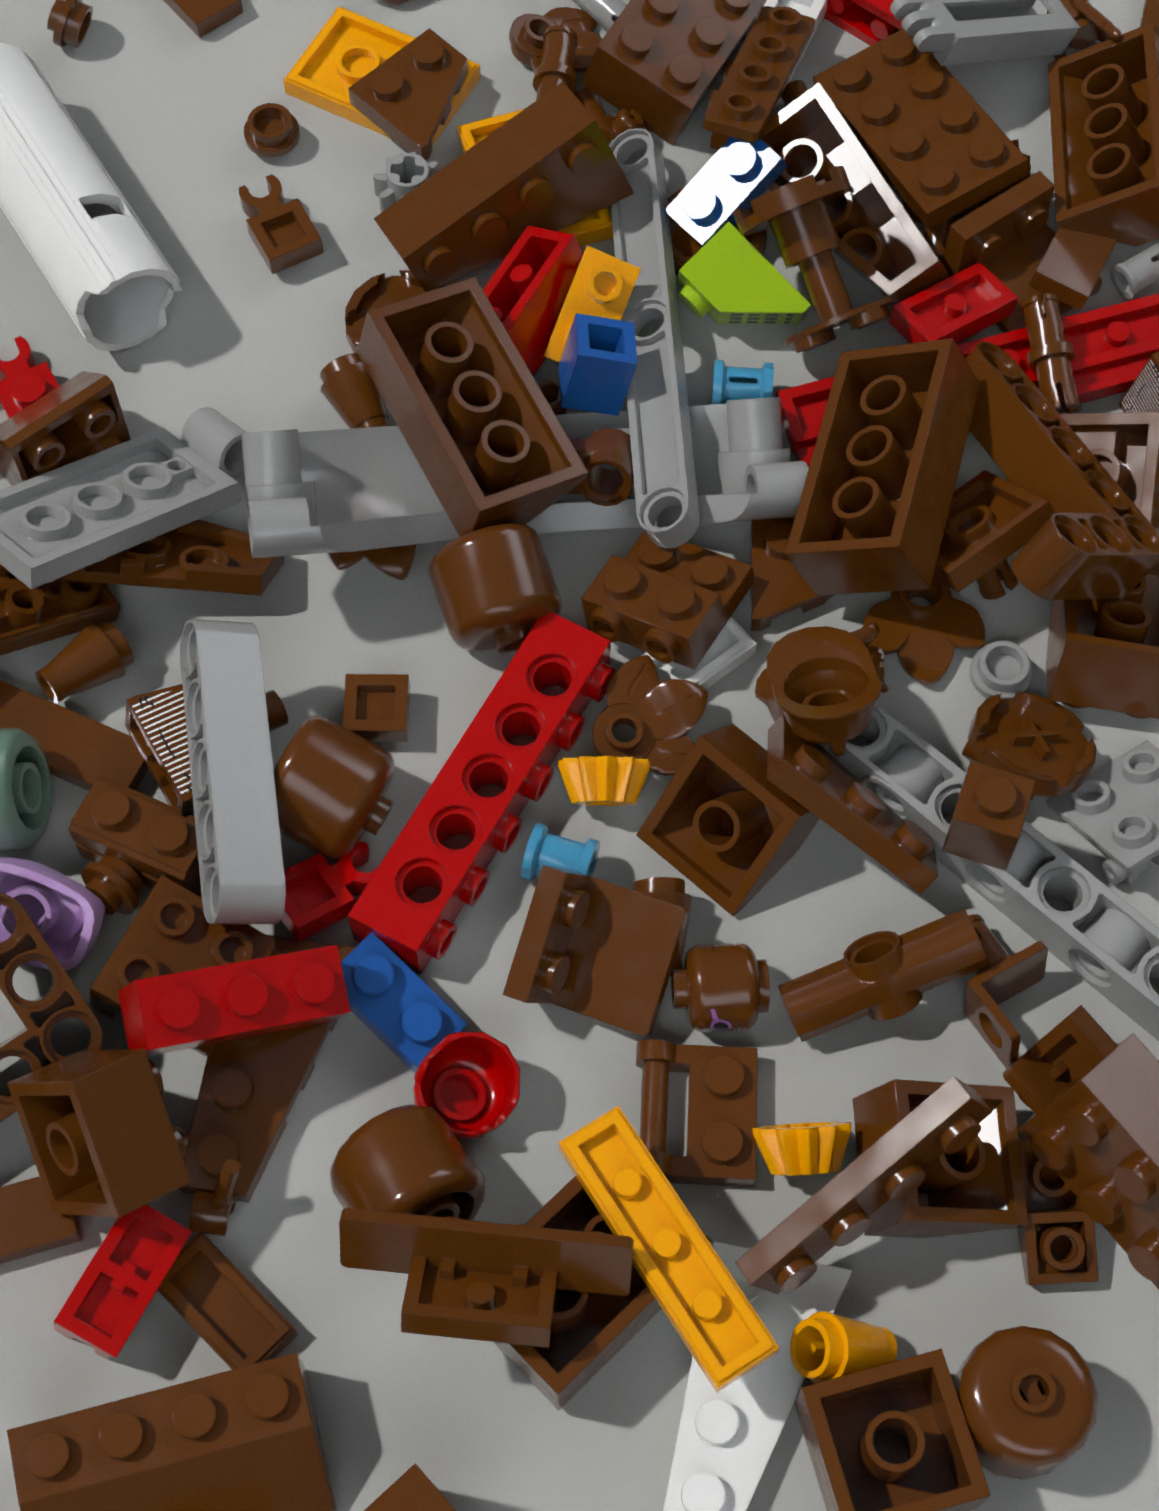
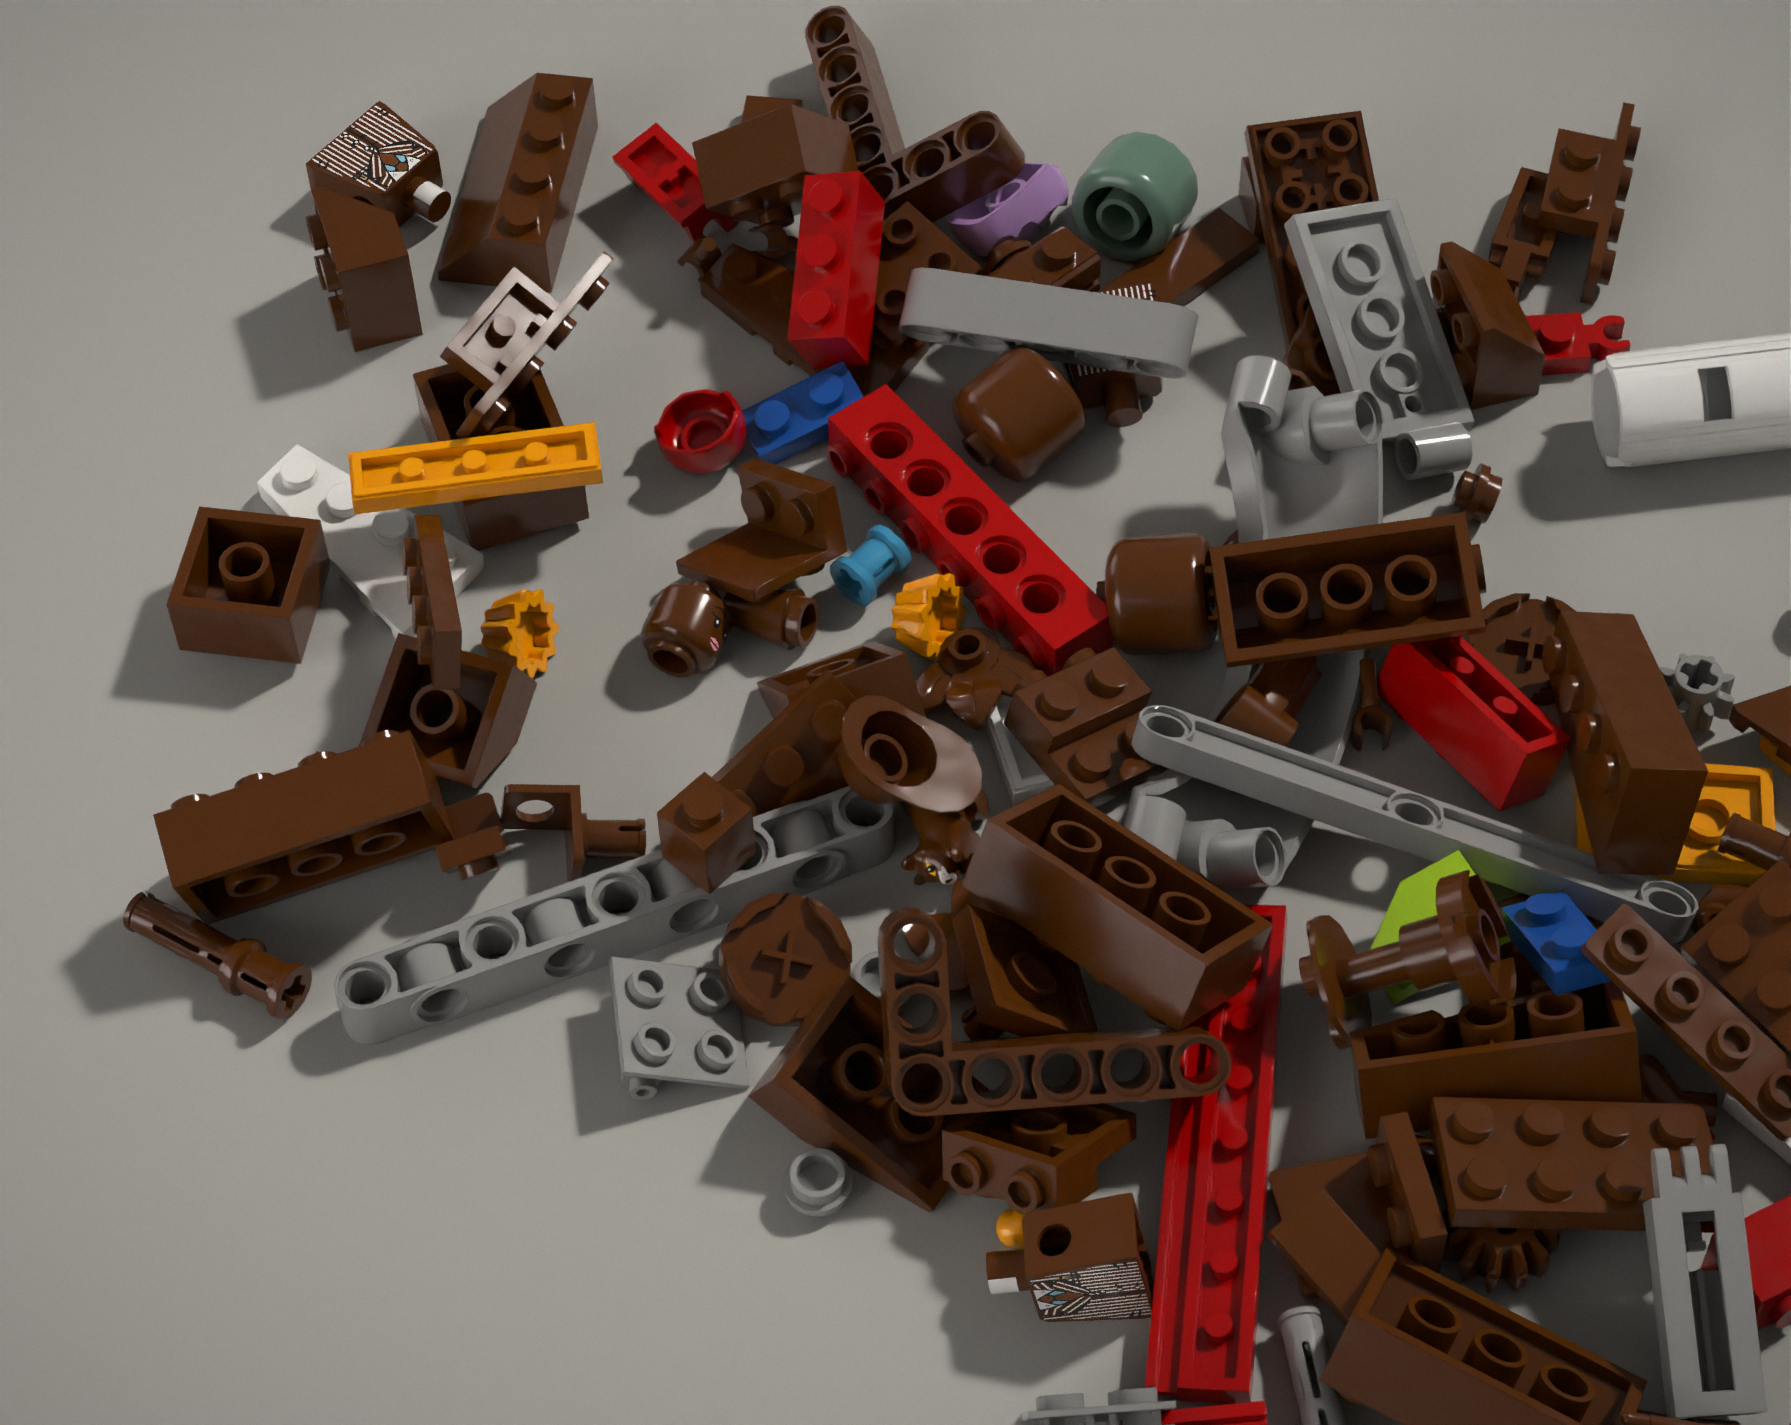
camera: 115 degrees right, 10 degrees down
(86, 662) = (1237, 303): reddish brown cone -> none
(224, 1306) = (637, 249): reddish brown tile -> none
(253, 397) = (1477, 493): none -> reddish brown plate
(279, 229) = (1685, 579): reddish brown plate -> none
(323, 893) = (928, 388): red plate -> none
(377, 706) = (1090, 487): reddish brown plate -> none
(408, 1166) = (642, 361): reddish brown head -> none
(597, 364) = (1368, 733): blue brick -> none
(598, 289) = (1451, 772): light orange hinge -> none
(718, 1116) = (593, 605): reddish brown plate -> none
(741, 382) = (1313, 888): dark azure bush -> none
(838, 1346) = (342, 590): light orange cone -> none
(883, 975) = (625, 739): reddish brown piece -> none
(954, 307) = (1314, 1101): red plate -> none
(1050, 352) = (1207, 1156): reddish brown pin -> none
(1052, 1419) = (225, 684): reddish brown head -> none

